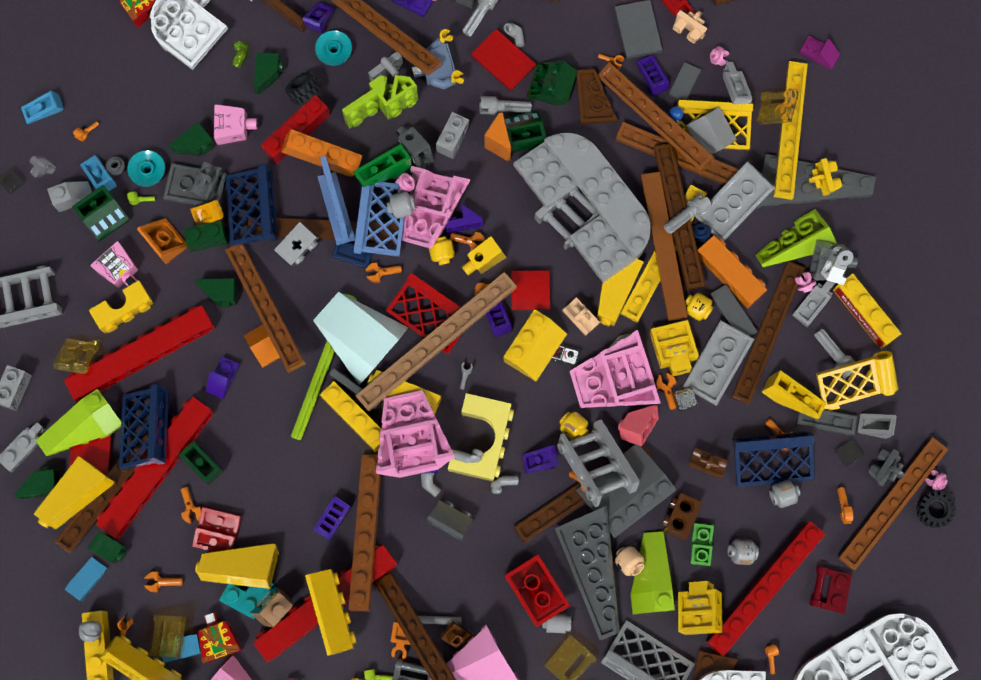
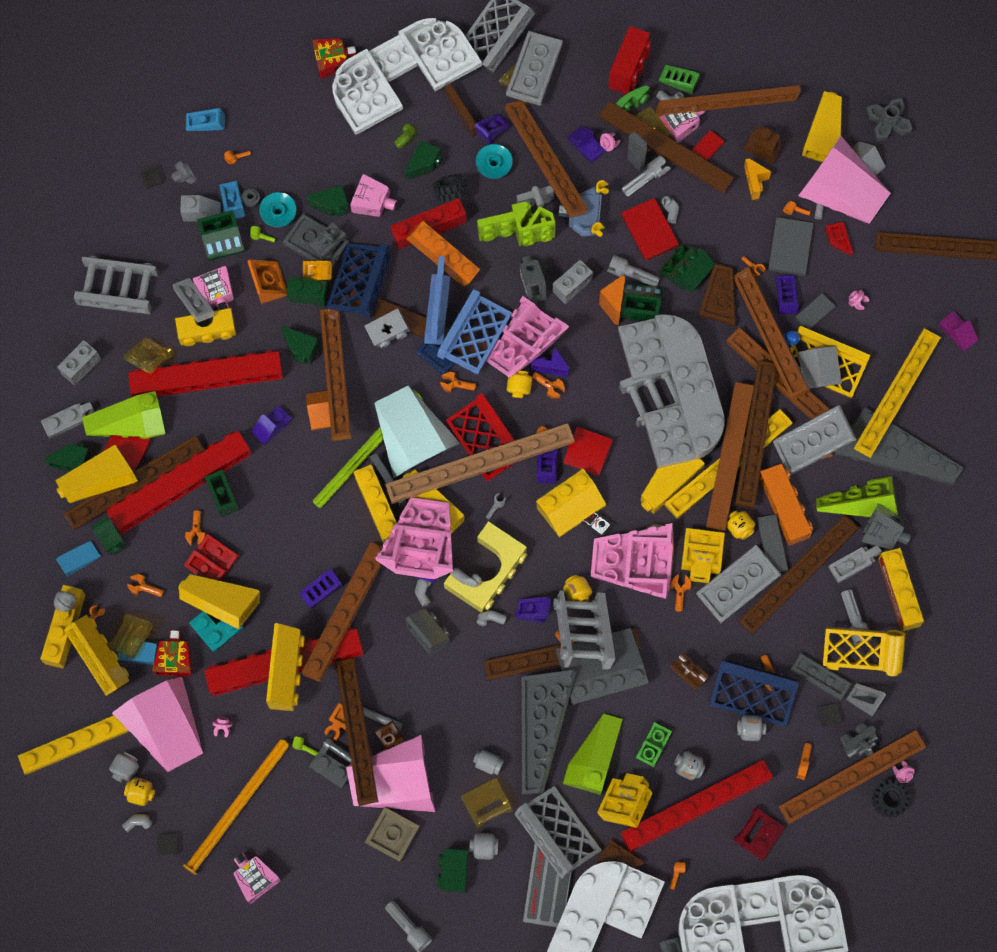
camera: 25 degrees right, 5 degrees down
(99, 285) = (193, 300): none -> light grey plate
(155, 425) = (194, 444): dark blue fence -> none
(272, 607) = (233, 646): medium nougat torso -> none
(384, 167) = (497, 287): green slope -> none
(401, 205) = (498, 327): light grey head -> none
(406, 183) = (511, 309): bright pink plate -> none
(489, 252) = (556, 404): yellow torso -> none
(536, 590) = (481, 724): red slope -> none
(581, 316) = (625, 492): light nougat hips -> none
(629, 561) = (578, 732): light nougat head -> none
(638, 425) = (638, 611): coral slope -> none
(685, 398) = (692, 605): clear smoke tile -> none
(685, 518) = (648, 714): reddish brown brick -> none
(692, 23) = (845, 259): light nougat hips -> none
(695, 207) = (774, 431): light grey piece -> none
(703, 232) = (772, 456): dark blue plate -> none
(736, 85) = (862, 332): light grey hinge -> none
(777, 112) = (893, 372): clear yellow plate -> none
(793, 395) = (796, 640): yellow slope -> none
(807, 284) = (853, 544): bright pink plate -> none
(823, 178) = (913, 441): yellow hips -> none
(837, 264) = (885, 532): leg -> none

